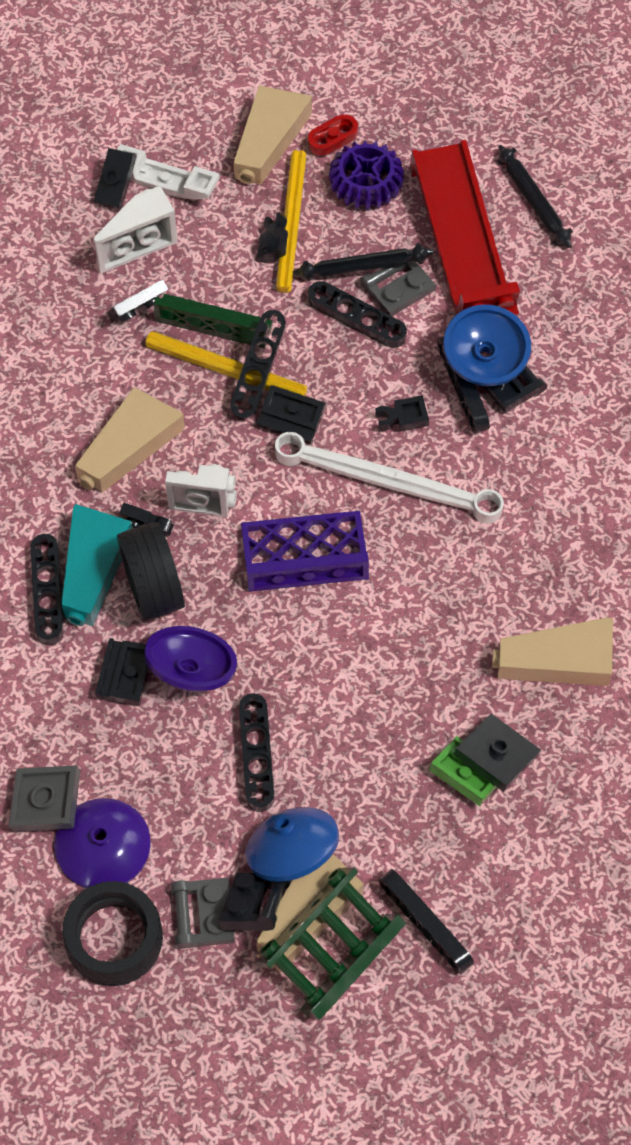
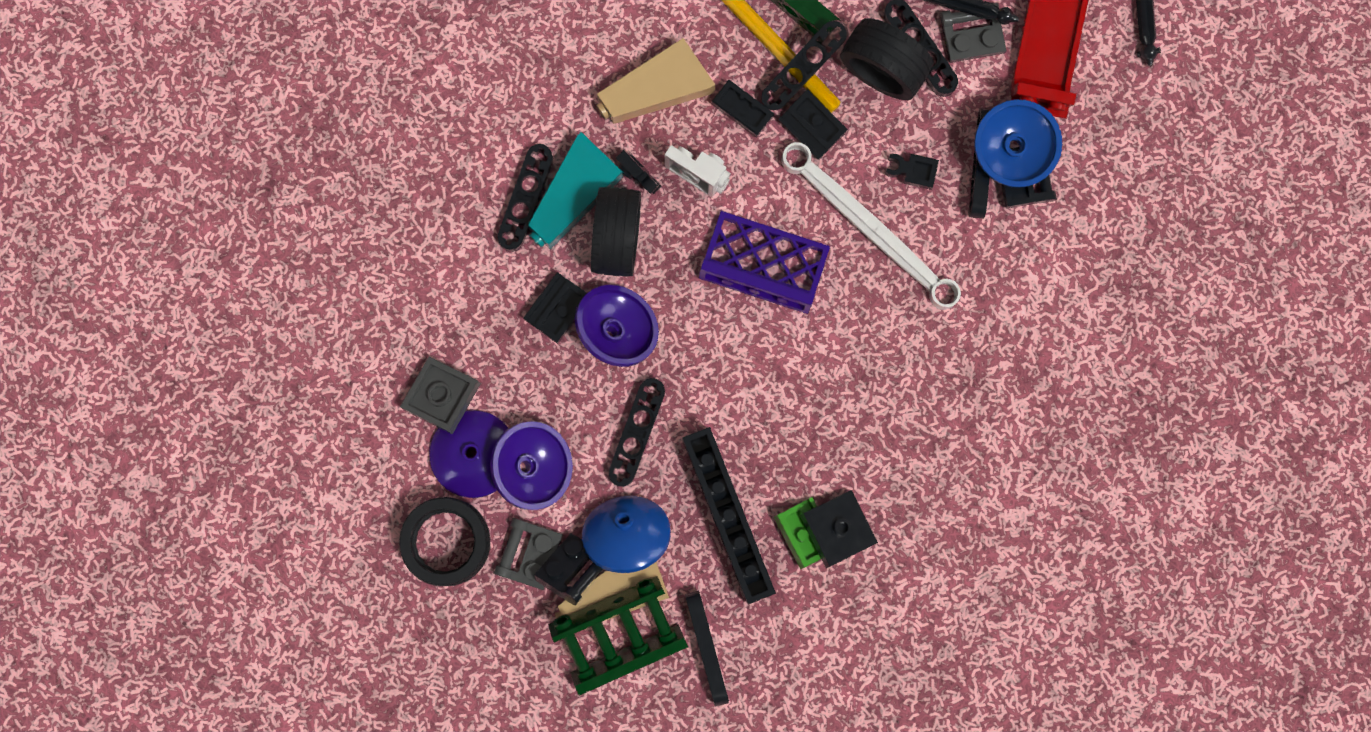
camera: 20 degrees right, 20 degrees up
(167, 821) = (546, 463): none -> dark purple dish
(218, 428) = (742, 108): none -> black plate
(331, 325) = (886, 59): none -> black tyre
(385, 784) = (728, 516): none -> black brick
(559, 655) = (940, 466): tan slope -> none

